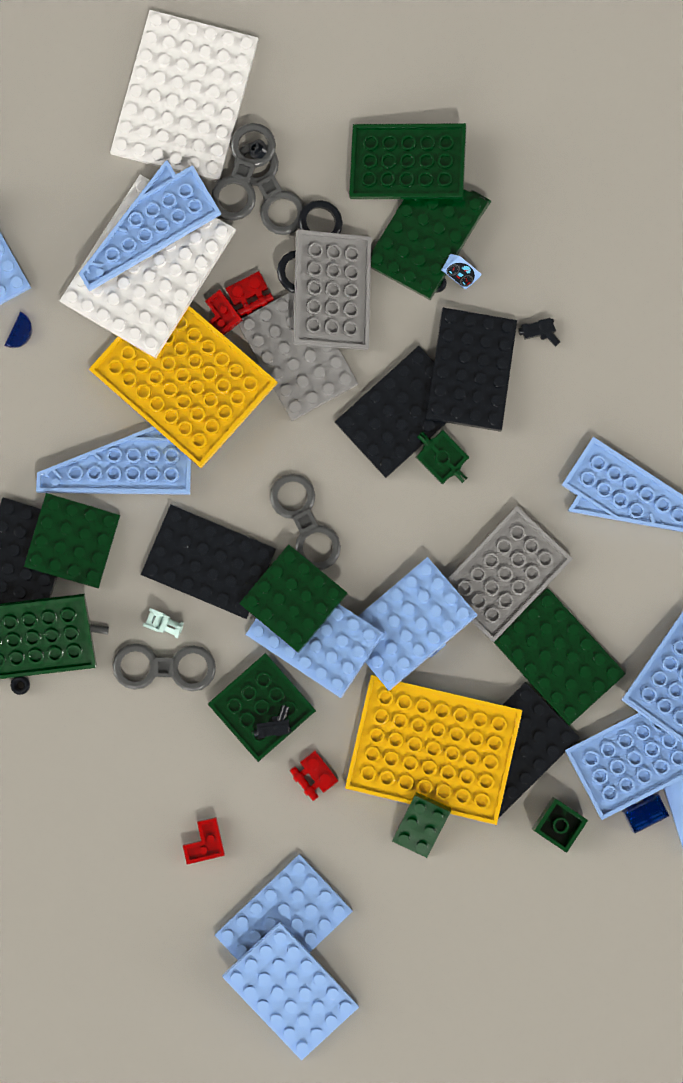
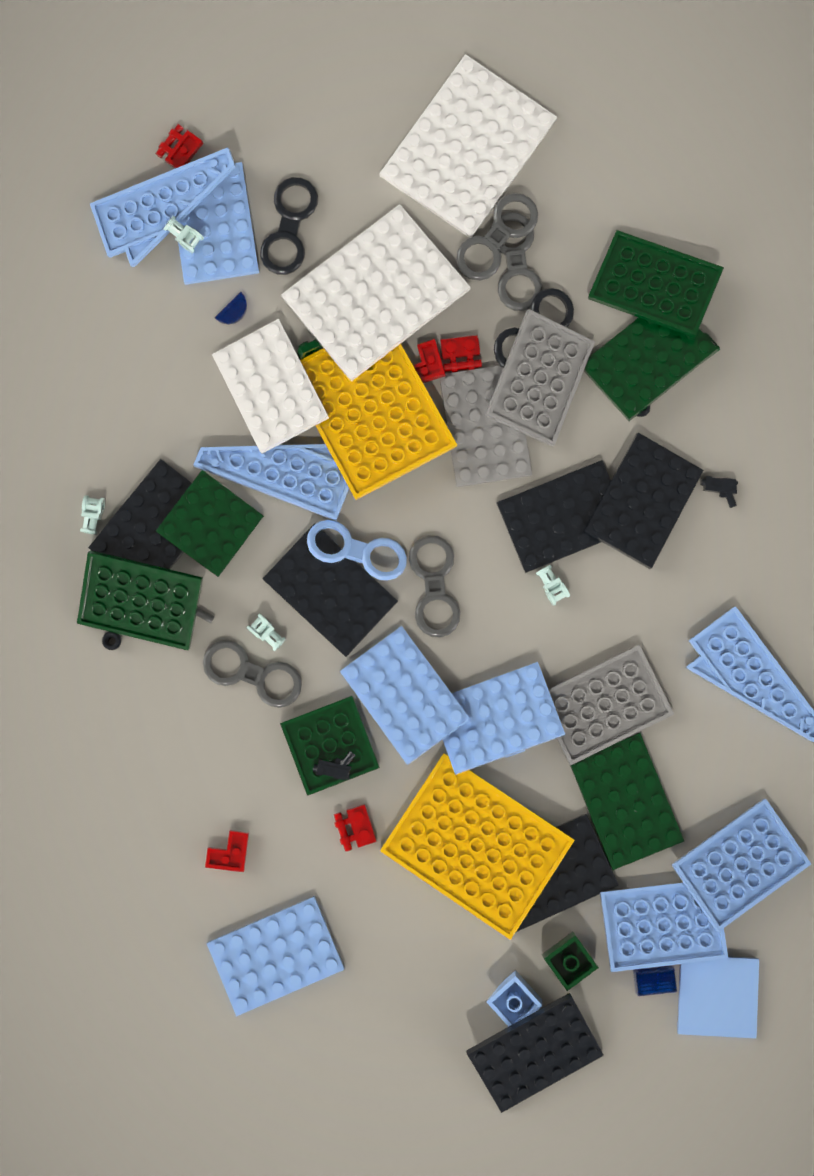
camera: 15 degrees right, 0 degrees up
(43, 232) = (289, 225): none -> black bar
(81, 390) = (270, 386): none -> white plate
(104, 342) = (308, 348): none -> dark green plate
(158, 217) = (403, 250): light blue wing -> none
(219, 515) = (356, 550): none -> light blue bar
(258, 149) = (519, 220): black plate -> none
(290, 991) = (258, 1023): light blue plate -> none
(293, 598) = (397, 654): dark green plate -> none
(416, 480) = (552, 585): none -> light aqua connector
(421, 824) = (439, 912): dark green plate -> none
(442, 457) = (585, 573): dark green plate -> none
(460, 271) = (667, 404): slope -> none
(521, 880) = (514, 999): none -> light blue slope
(558, 921) = (535, 1052): none -> black plate

